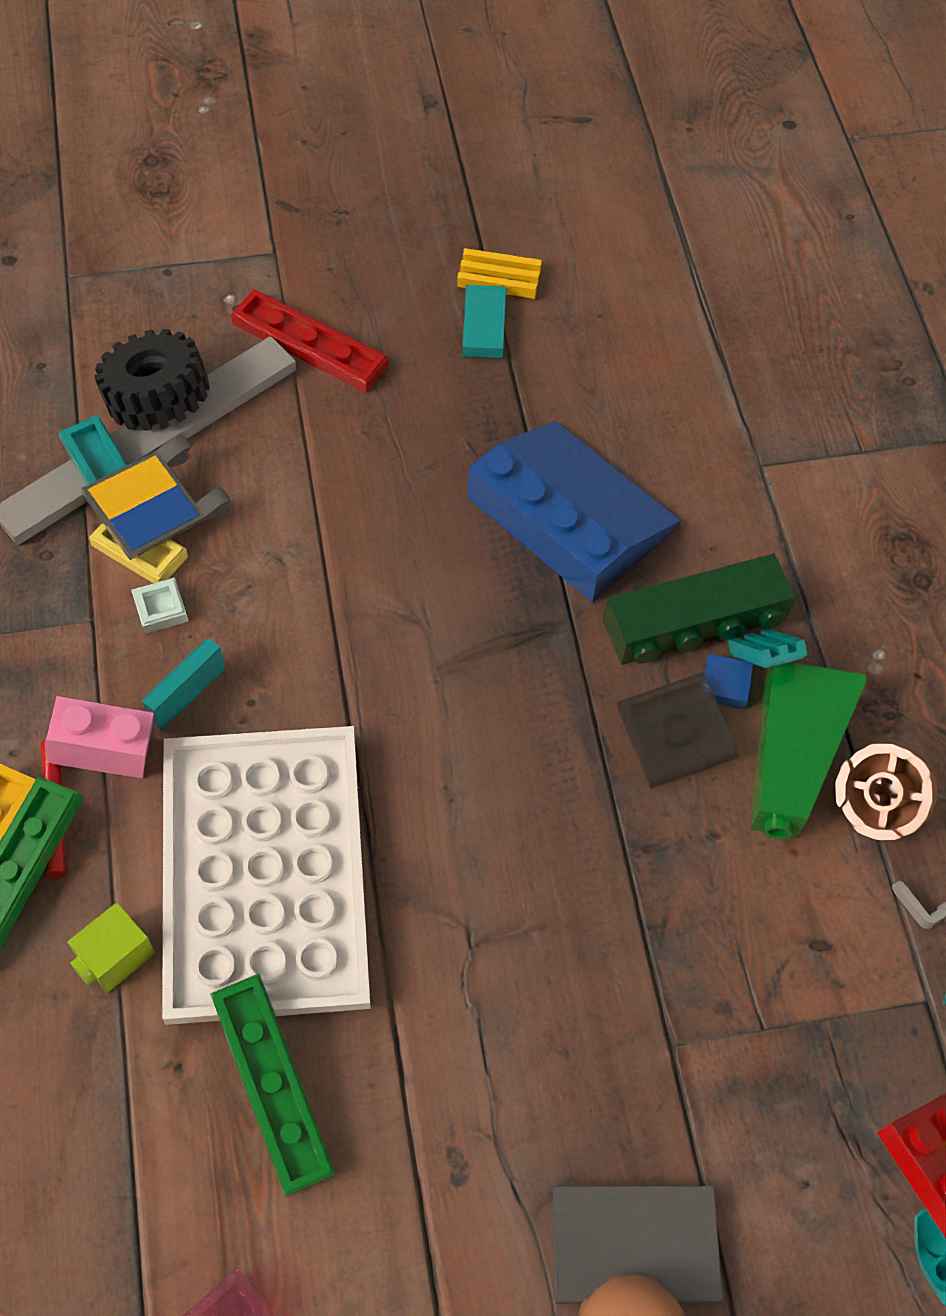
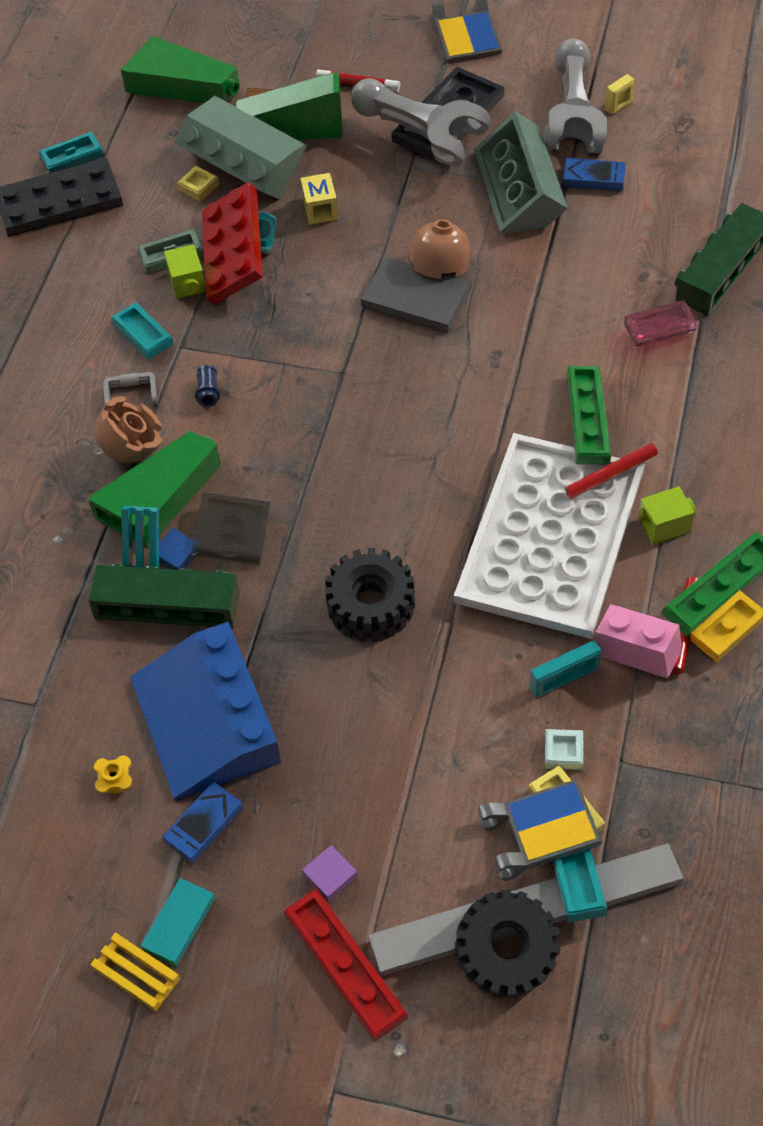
camera: 150 degrees left, 5 degrees down
(203, 980) = (611, 471): none -> red bar
(360, 405) = (330, 873): none -> medium lavender tile
(462, 666) = (366, 573): none -> black tyre
(511, 406) = (202, 822): none -> blue tile
(627, 426) = (117, 783): none -> yellow plate
(841, 930) = (207, 392): none -> dark blue pin

